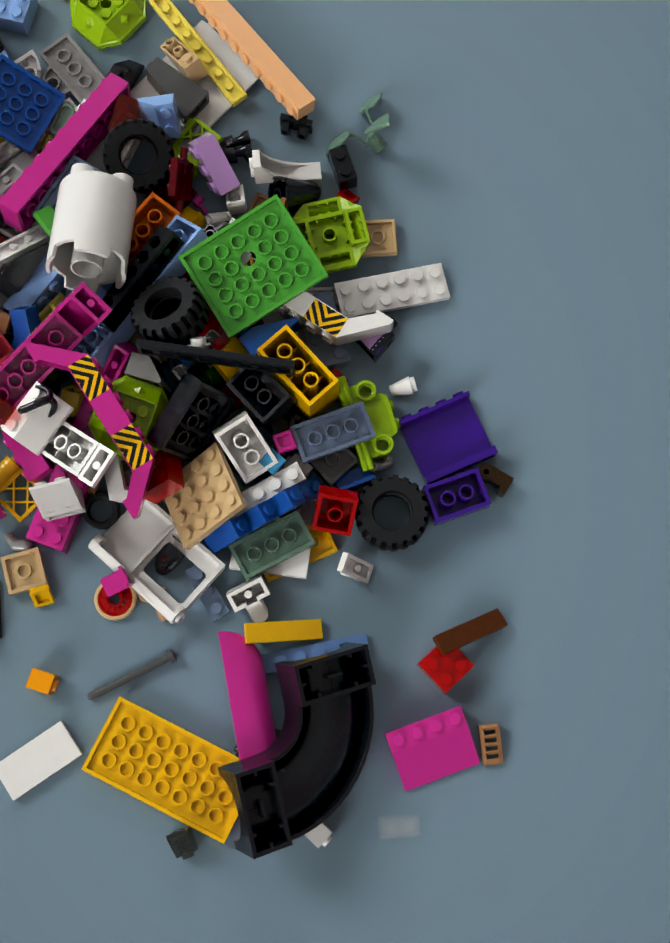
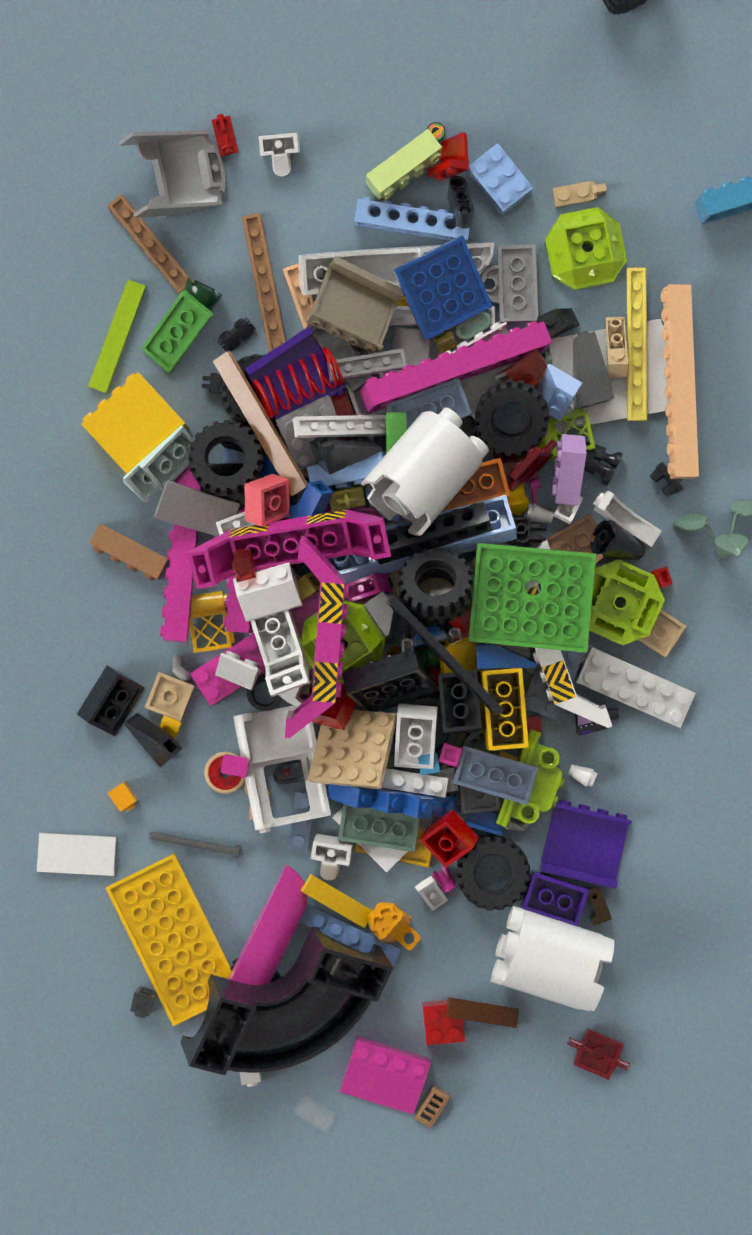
camera: 40 degrees right, 10 degrees up
(38, 614) = (154, 740): none -> black slope
(41, 402) = (278, 588): black piece -> none
(199, 342) = (440, 632): white plate -> none
(342, 167) = (677, 548): black brick -> none
(342, 617) = (391, 924): none -> light orange piece
(362, 549) = (444, 879): none -> dark pink piece
(492, 542) = (552, 959): none -> white brick
(588, 595) = (598, 1054): none -> dark red plate

